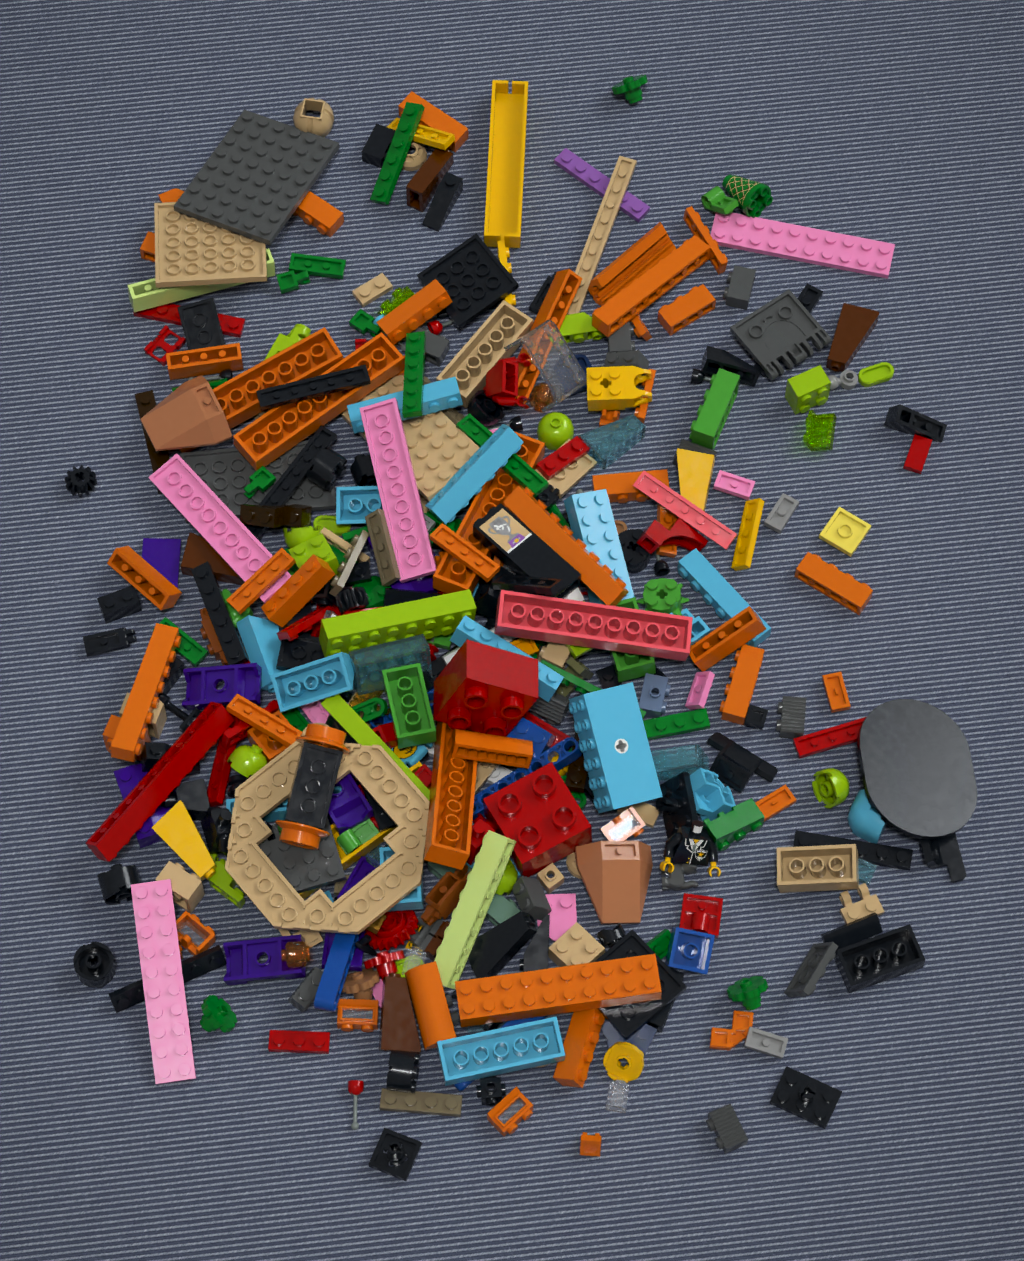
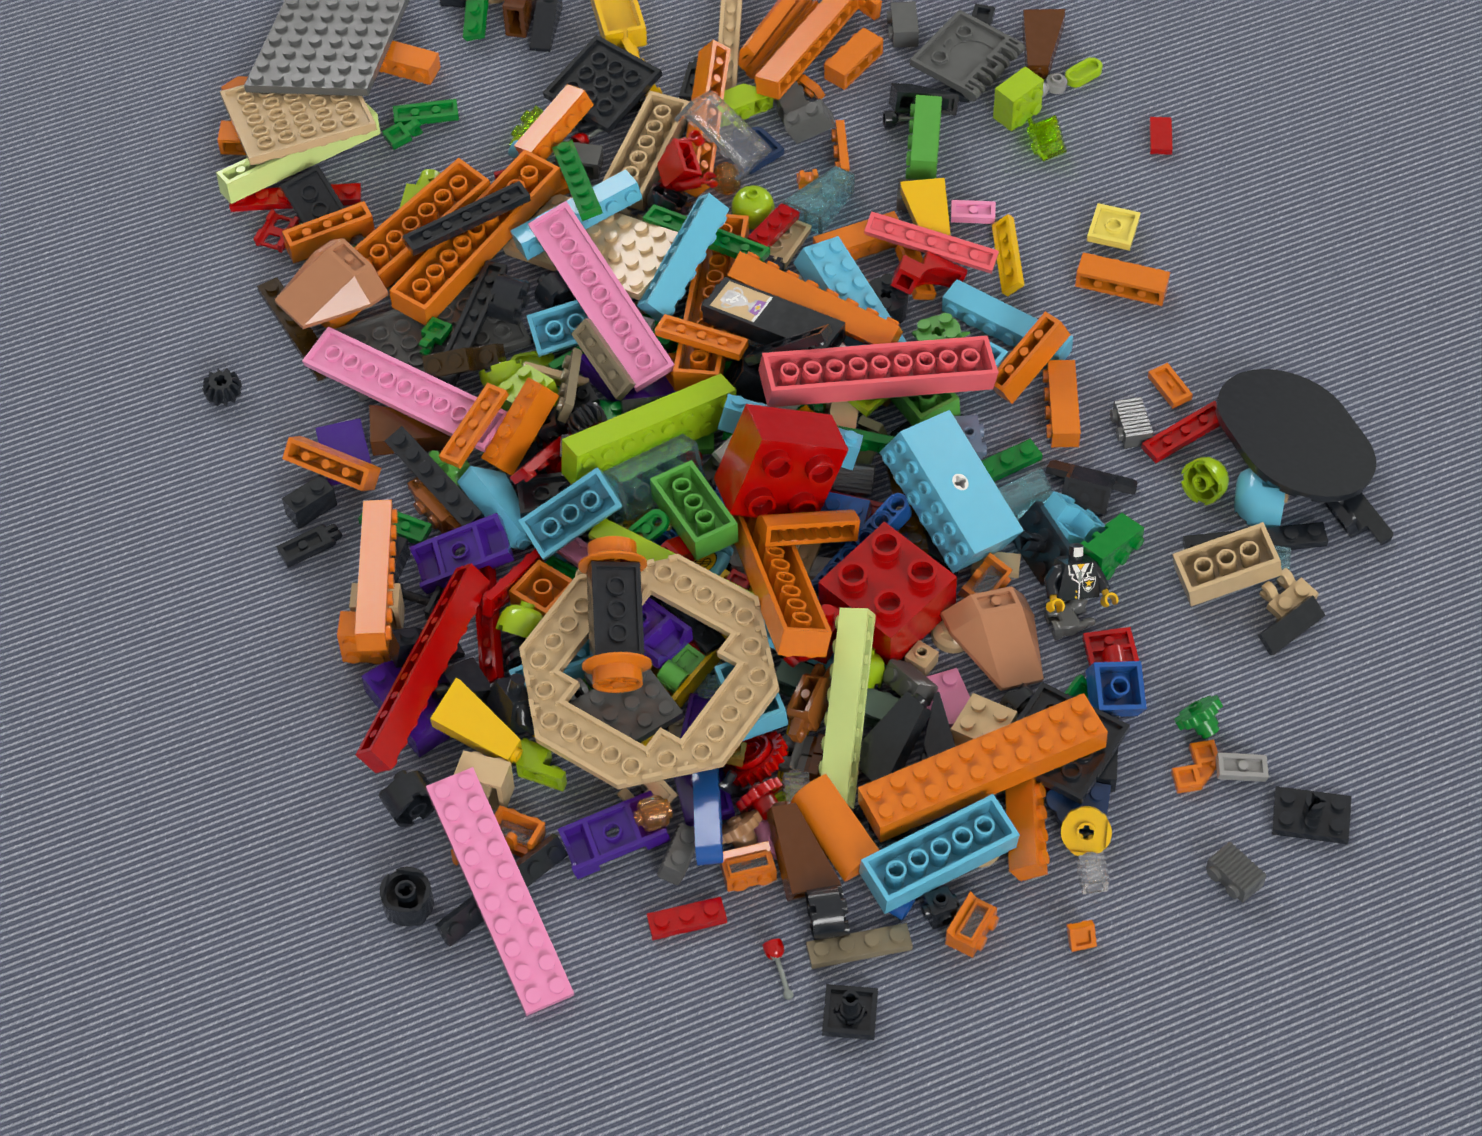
camera: 15 degrees left, 10 degrees down
(217, 1015) = (576, 913): green plant -> none
(263, 720) = (525, 571): orange plate -> none
(364, 322) = (498, 154): green plate -> none
(372, 290) = (496, 122): tan plate -> none
(616, 387) = (807, 144): yellow brick -> none
(661, 568) = (922, 310): black hinge -> none
(699, 690) = (1016, 421): bright pink plate -> none
(756, 717) = (1092, 431): black tile -> none
(776, 802) = (1150, 511): orange plate -> none
(781, 513) = (1036, 226): light grey plate -> none
(811, 969) = (1264, 672): dark grey plate -> none
(879, 958) = (1335, 641): black brick -> none
(912, 422) = (1141, 104): black slope -> none

